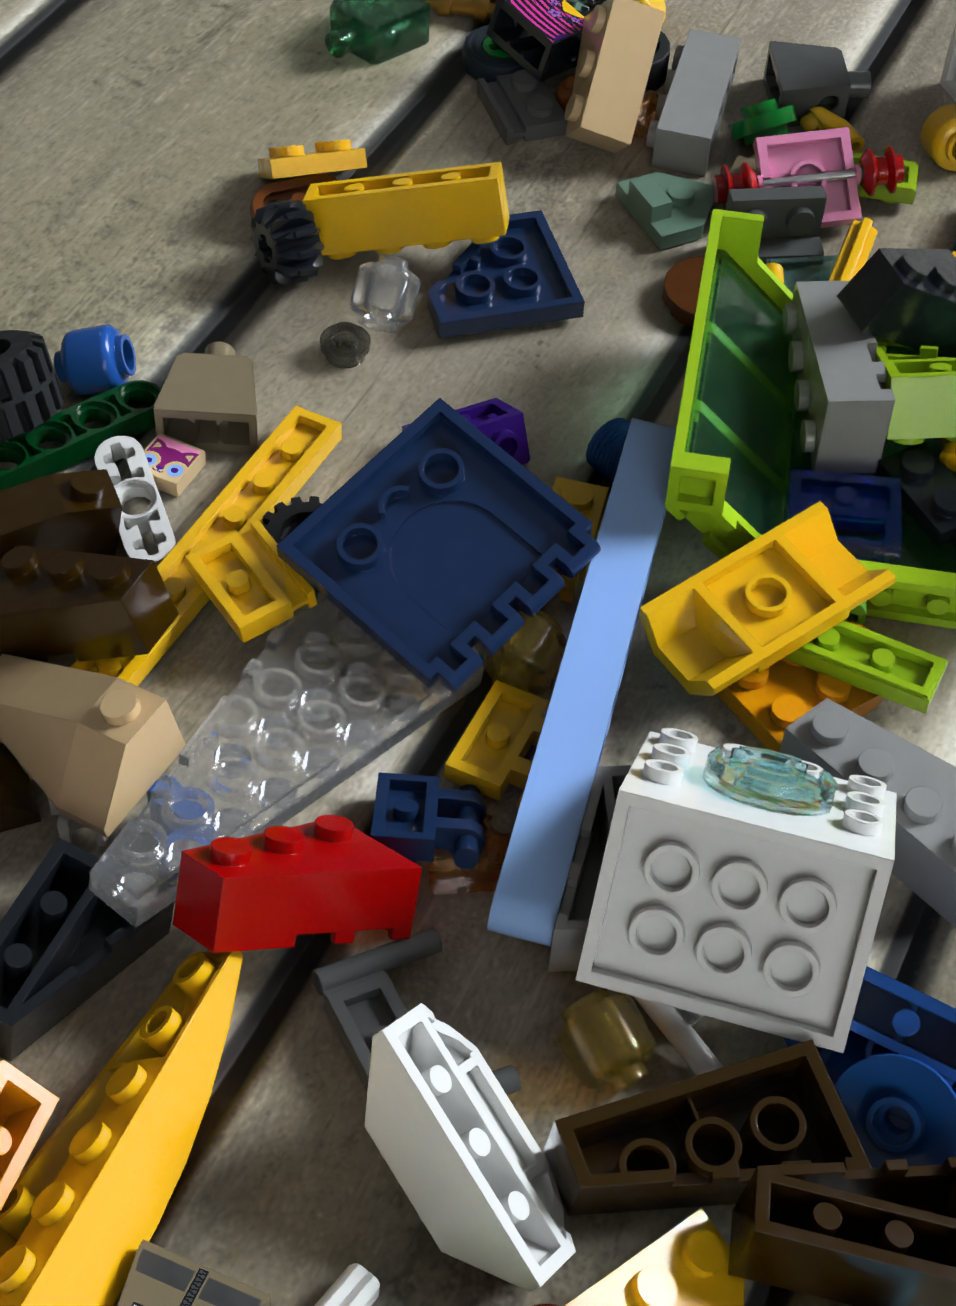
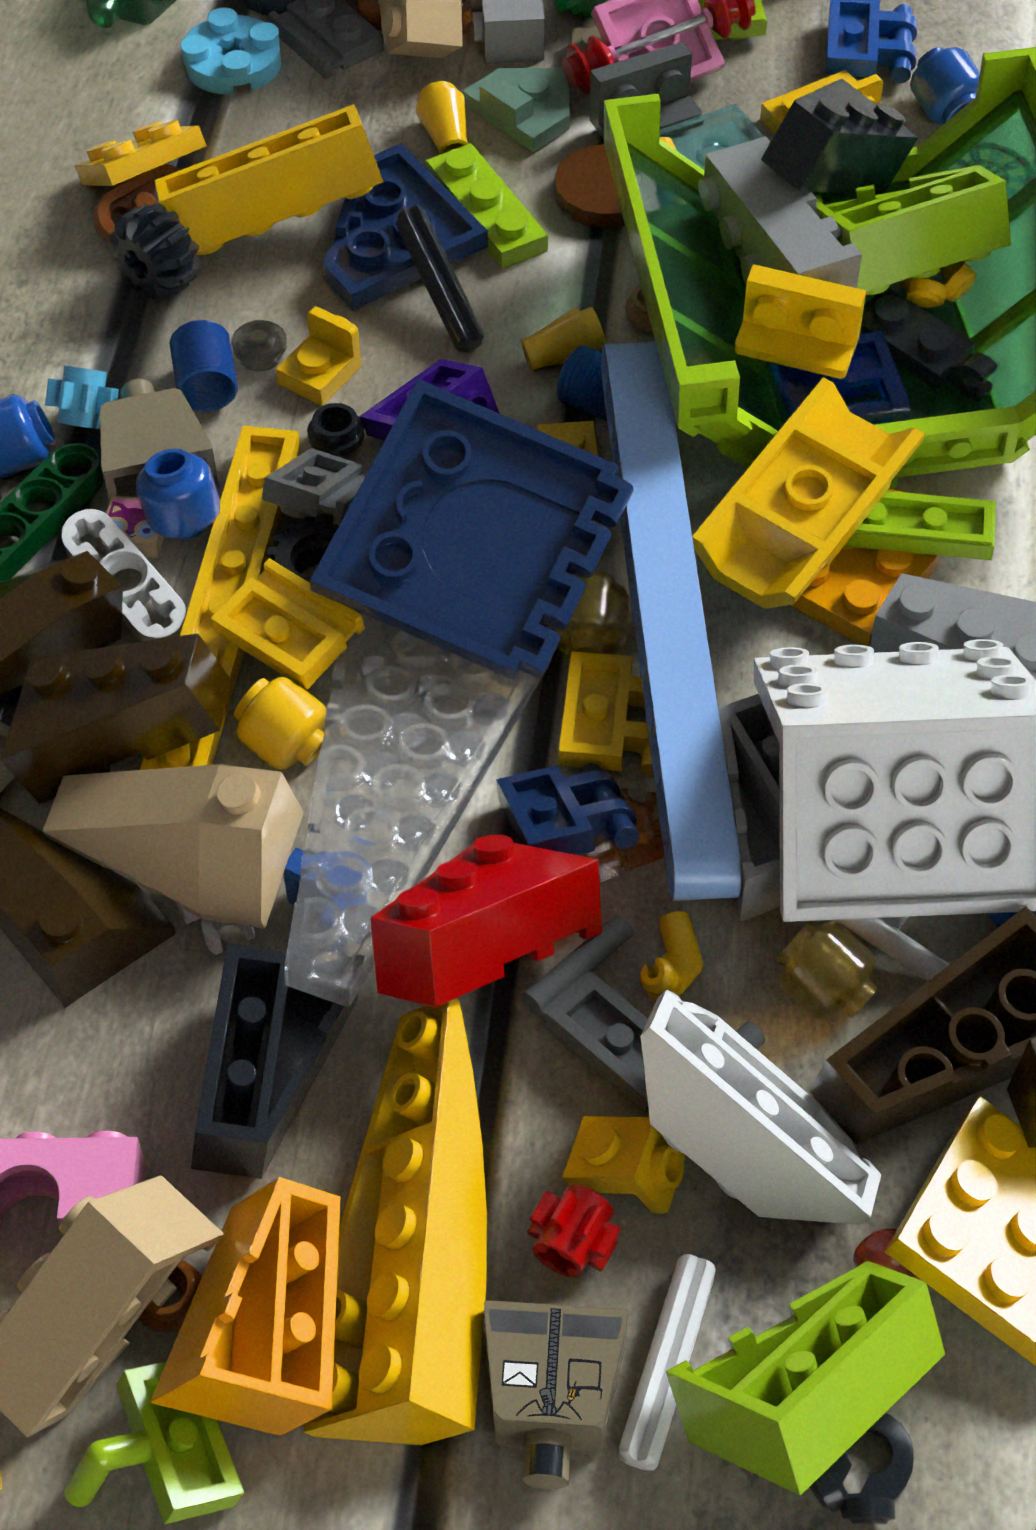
camera: 15 degrees left, 5 degrees up
(167, 341) = (79, 396): none -> medium azure gear
(207, 662) = (281, 722): none -> yellow head
(209, 445) = (177, 494): none -> blue head
(260, 1204) = (573, 1231): none -> red gear
(286, 347) = (204, 365): none -> blue piece
(322, 468) = (314, 485): none -> dark grey plate
(340, 1155) = (625, 1158): none -> yellow bracket
(374, 430) = (335, 429): none -> black plate
(385, 294) = (282, 279): clear head -> none
(393, 372) = (323, 359): none -> yellow bracket
(433, 102) = (231, 52): none -> medium azure plate
(473, 993) = (681, 961): none -> yellow arm
(523, 330) = (440, 279): none -> black axle
(590, 199) = (443, 115): none -> yellow cone
(600, 281) = (474, 183): none -> lime plate
(619, 403) = (559, 338): none -> yellow cone
(769, 781) = (904, 673): clear light blue tile -> none
(821, 447) = (800, 321): none -> yellow bracket
(854, 250) = (735, 106): yellow axle -> none

